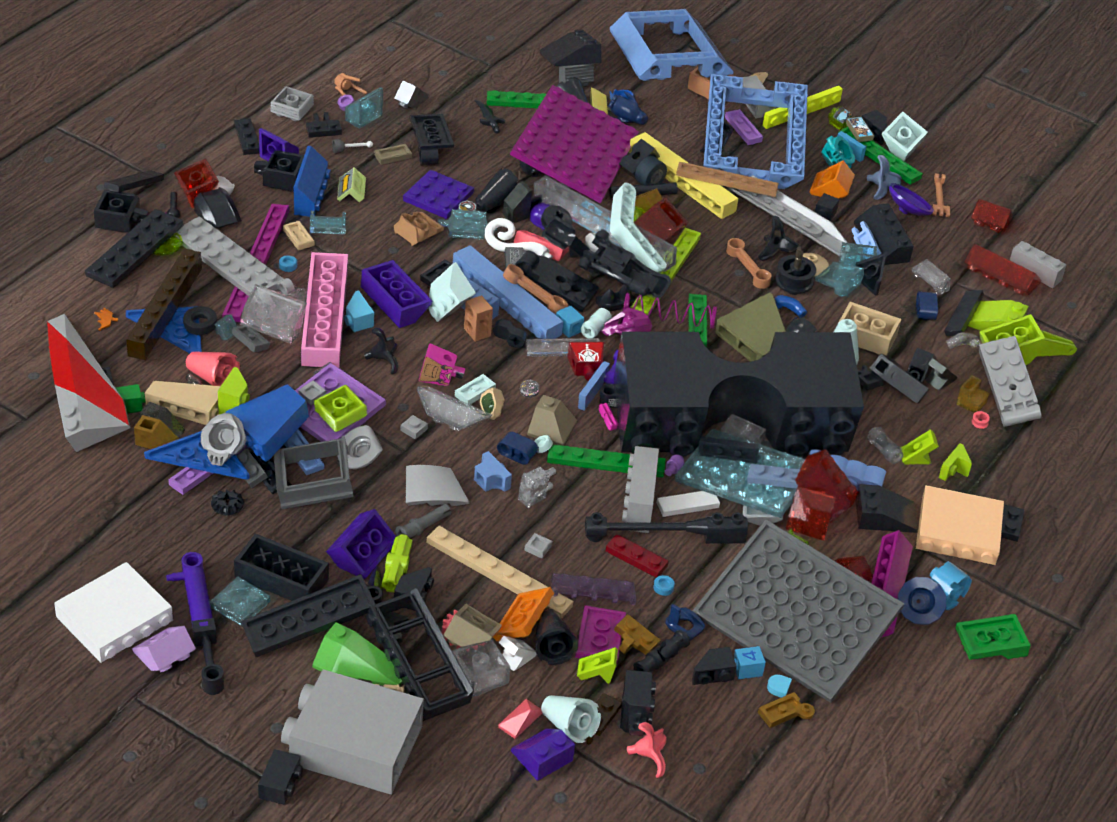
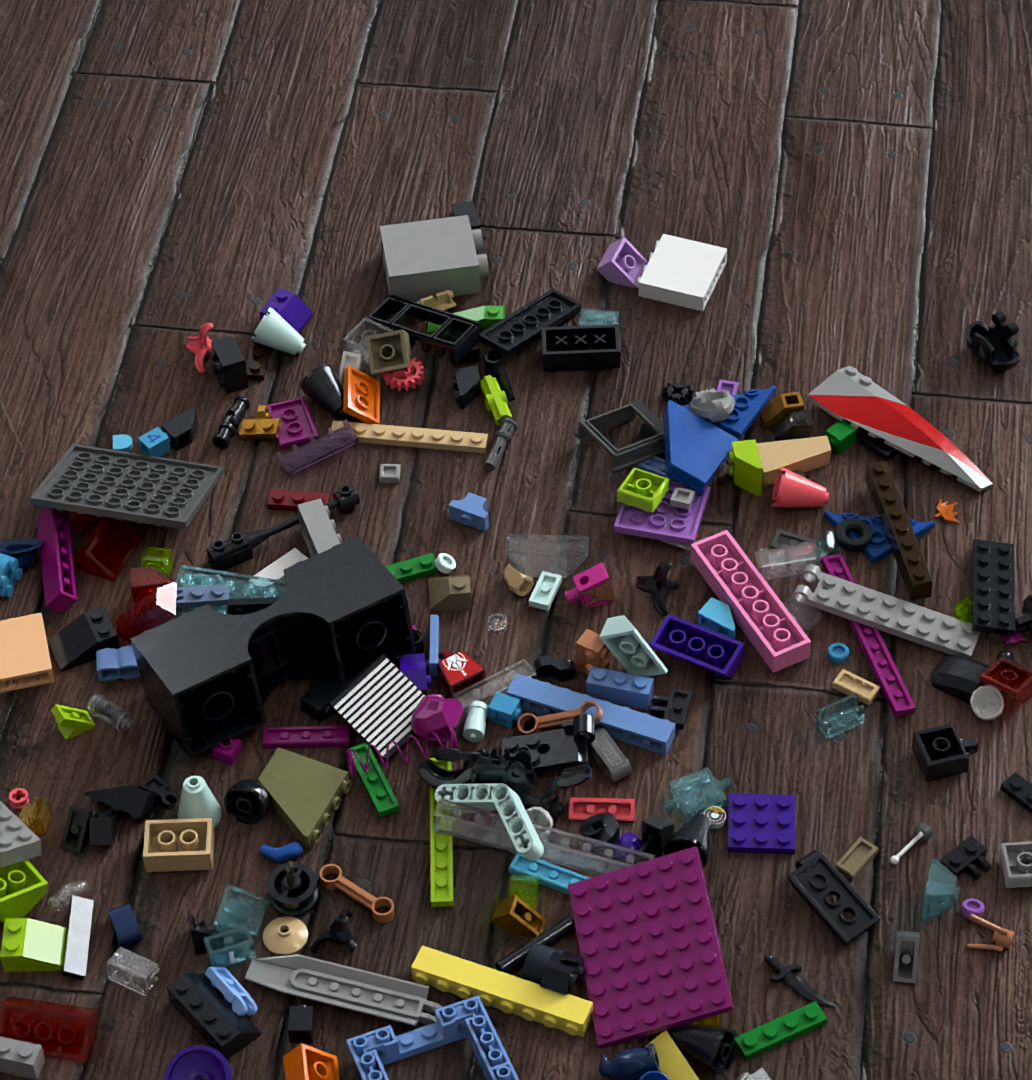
camera: 160 degrees right, 5 degrees up
(201, 617) = (604, 289): piece -> none
(270, 143) = (975, 778): dark purple slope -> none
(310, 183) = (897, 747): blue slope -> none
(352, 183) = (857, 781): yellowish green panel -> none
(362, 447) = (599, 478): light grey hat -> none
(362, 544) = (536, 401): dark purple slope -> none
(414, 427) = (576, 529): light grey plate -> none
(416, 227) = (744, 760): medium nougat slope -> none
(433, 486) = (511, 475): light grey slope -> none
(517, 448) = (465, 547): dark blue beam -> none
(520, 718) = (317, 336): coral slope -> none
(535, 486) = (422, 508): clear piece -> none
(538, 248) = (643, 794): white plant -> none
(598, 664) = (277, 385): lime slope -> none
(662, 220) = (482, 877): clear red slope -> none
(664, 585) = (260, 486): dark azure tile -> none
(682, 613) = (223, 450): dark blue piece -> none
(727, 179) = (438, 987): medium nougat tile -> none
(785, 709) = (108, 423): pearl gold hinge -> none
(956, 462) = (30, 725): lime slope -> none

